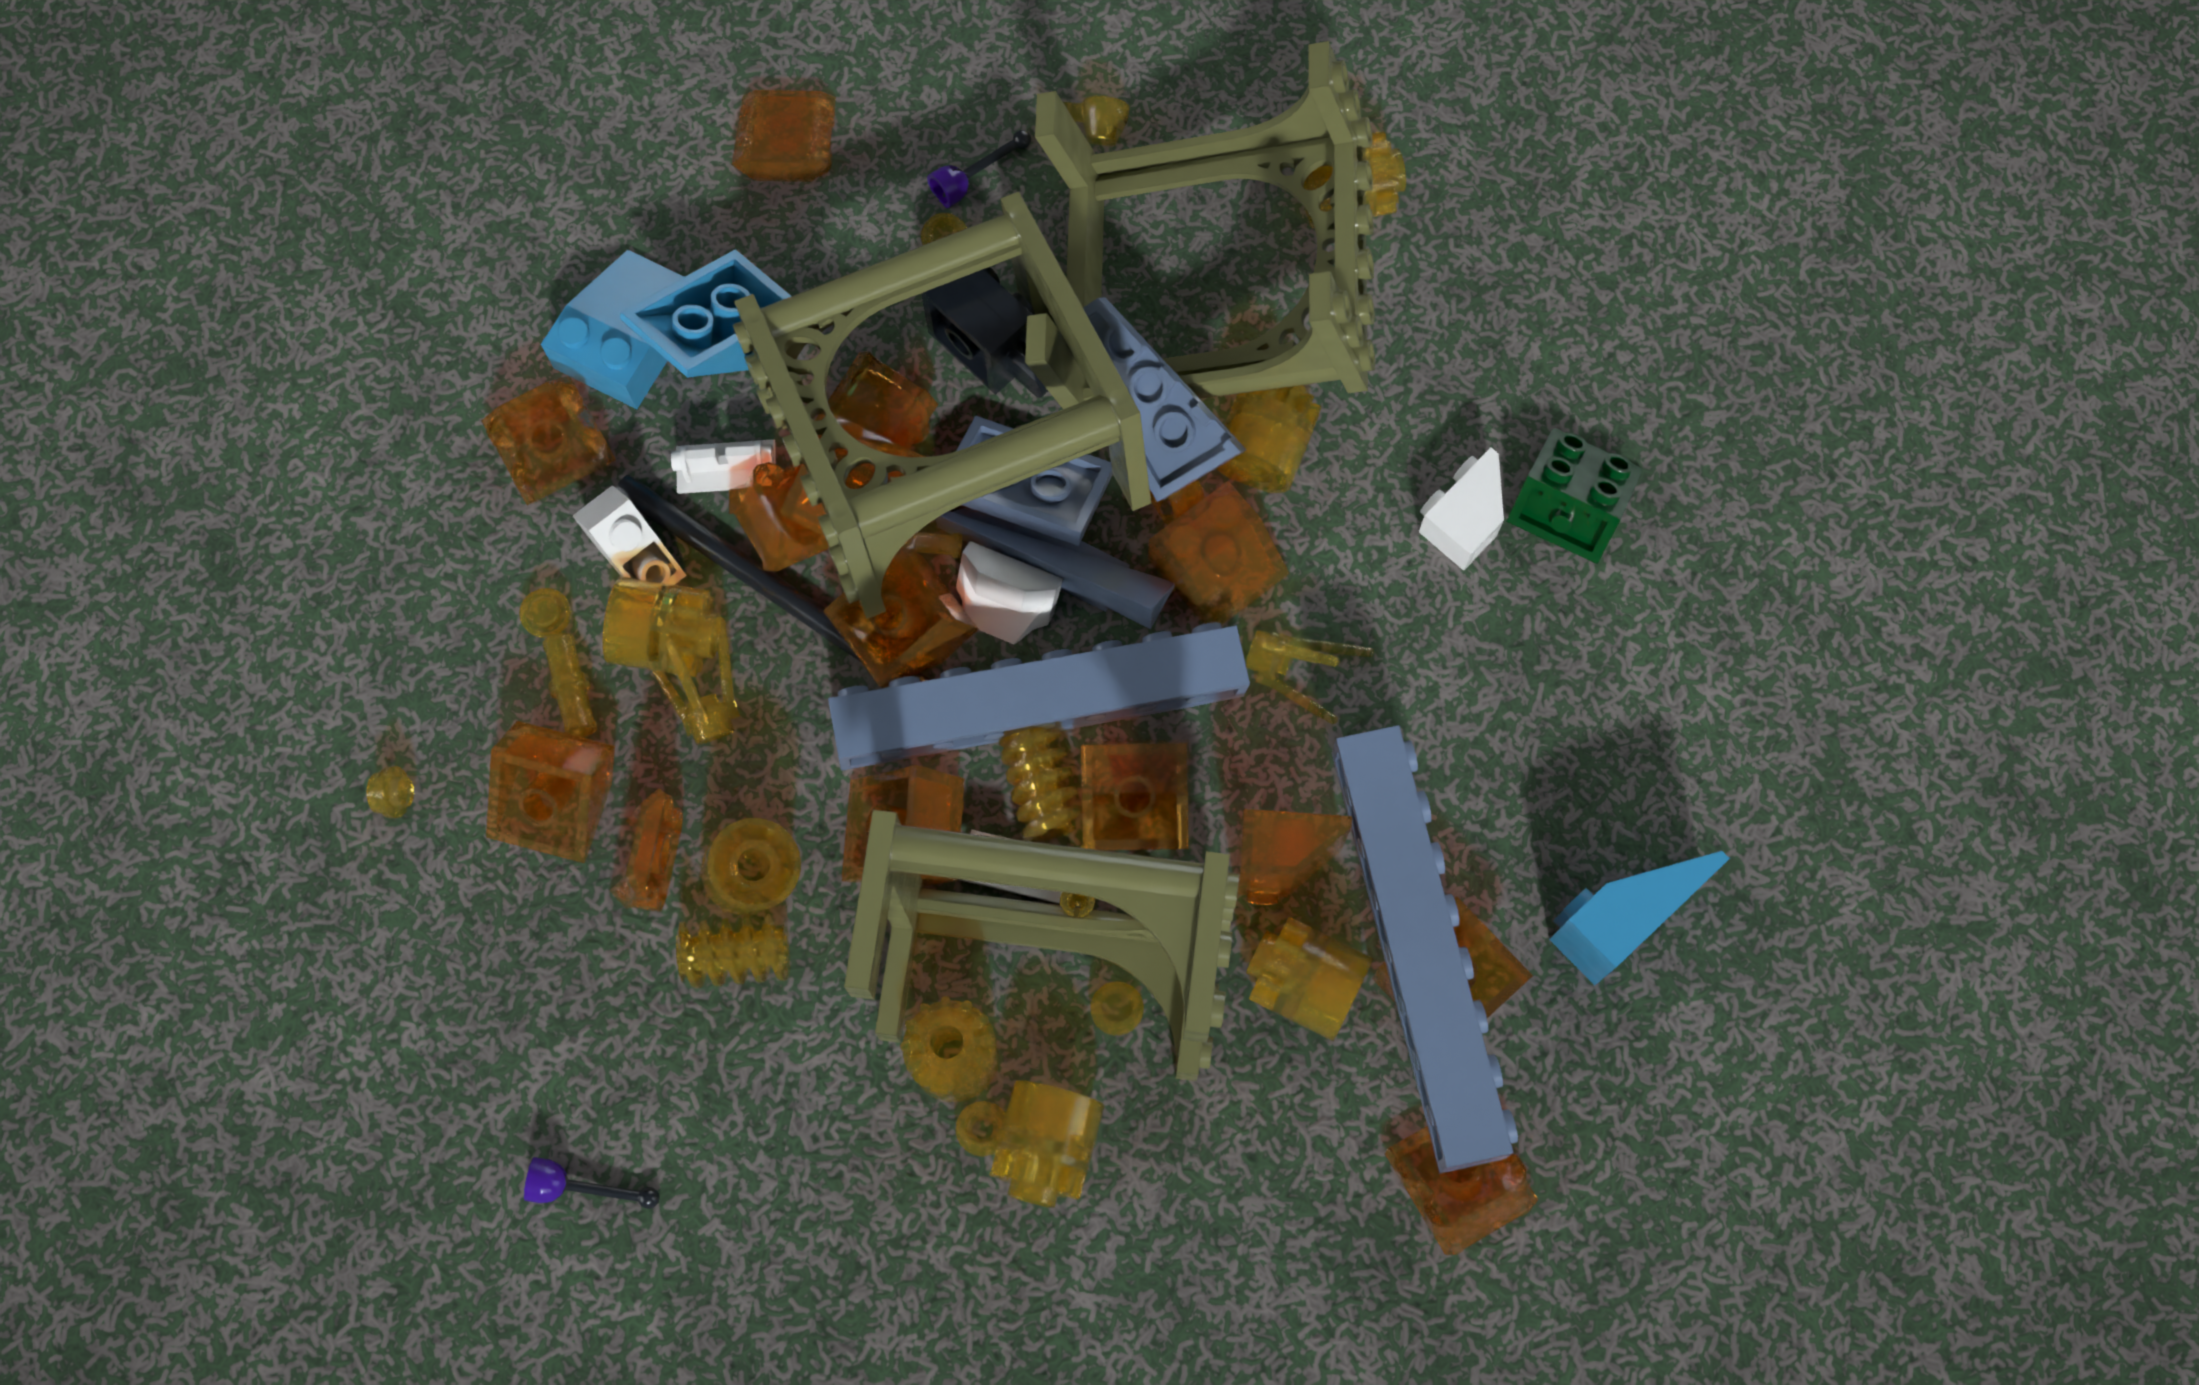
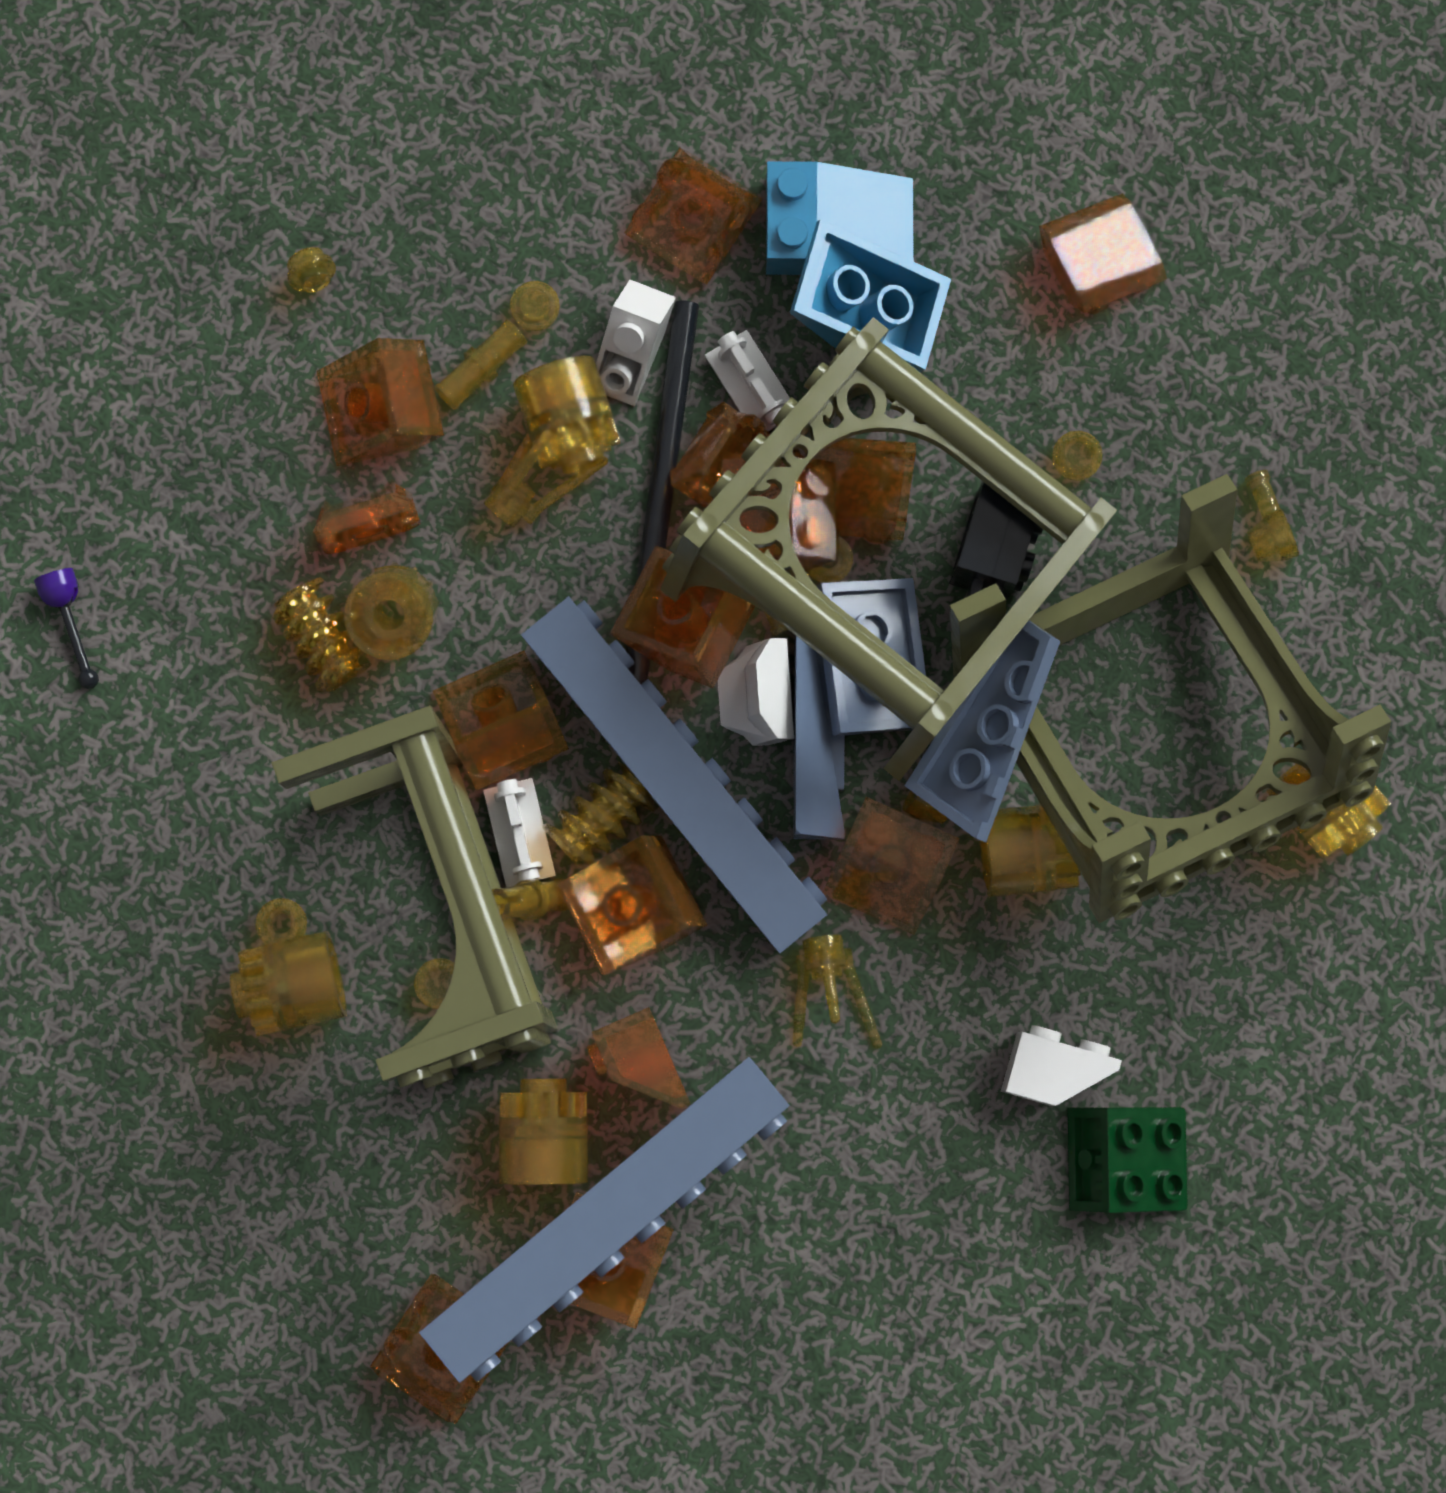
camera: 55 degrees right, 10 degrees up
(954, 181) = (1135, 432): hinge -> none
(955, 1077) = (349, 876): clear yellow gear -> none
(1608, 926) = (732, 1385): dark azure slope -> none

